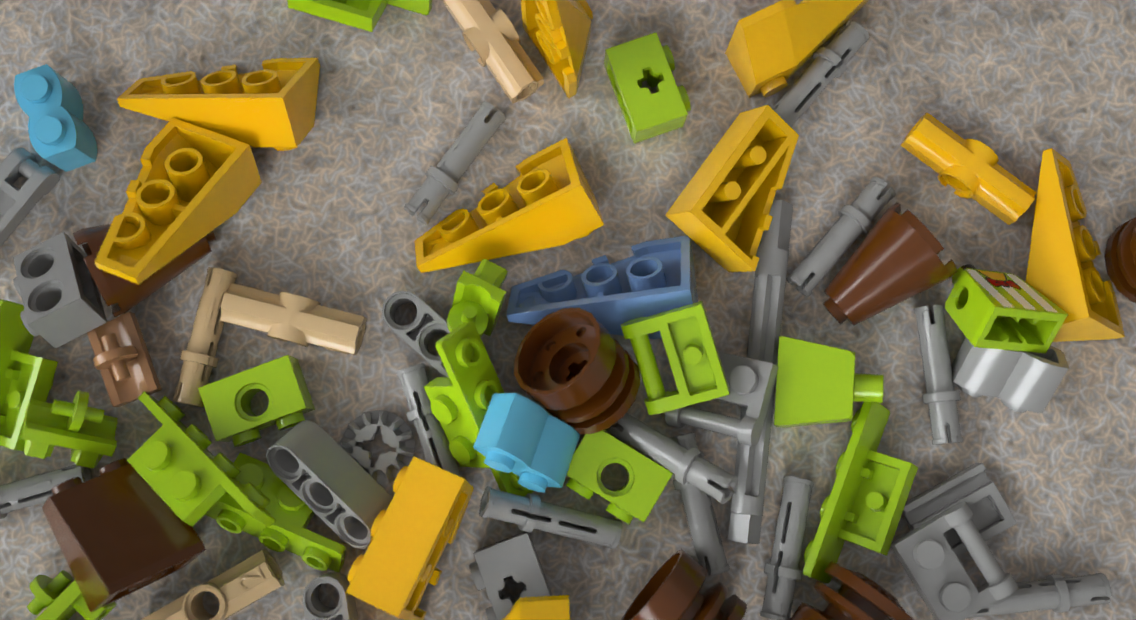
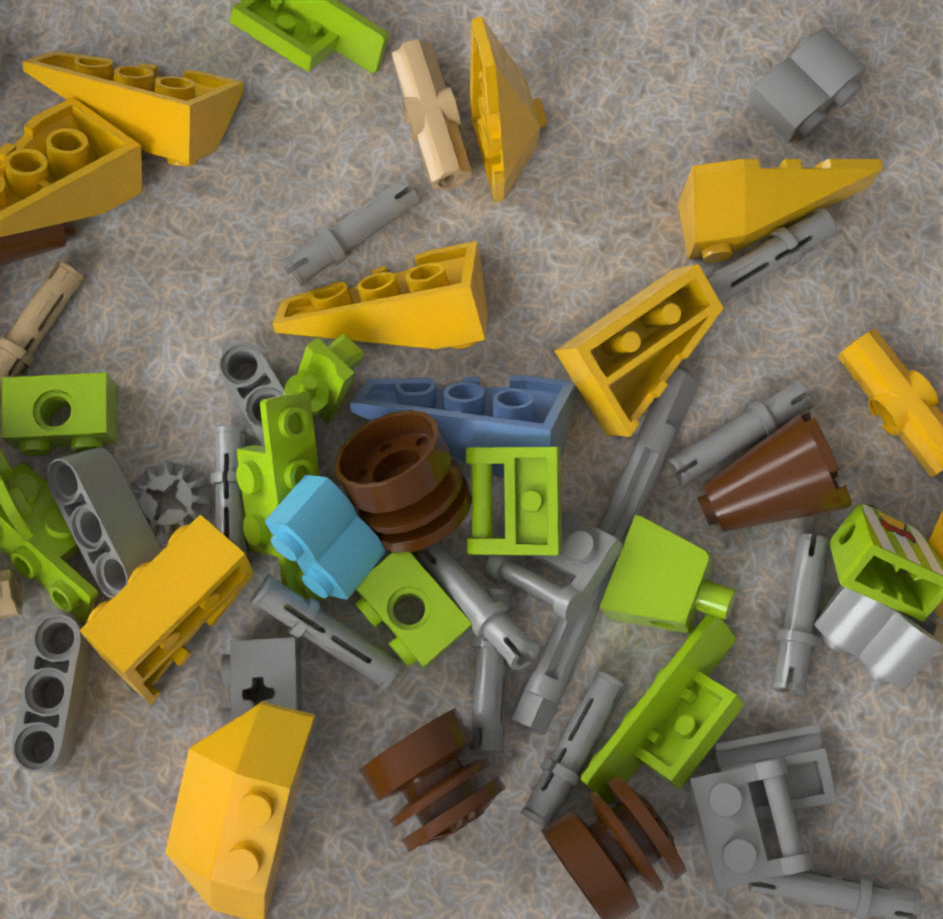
camera: 20 degrees right, 5 degrees down
(293, 319) = (127, 340): tan piece -> none
(644, 112) = (586, 186): lime brick -> none

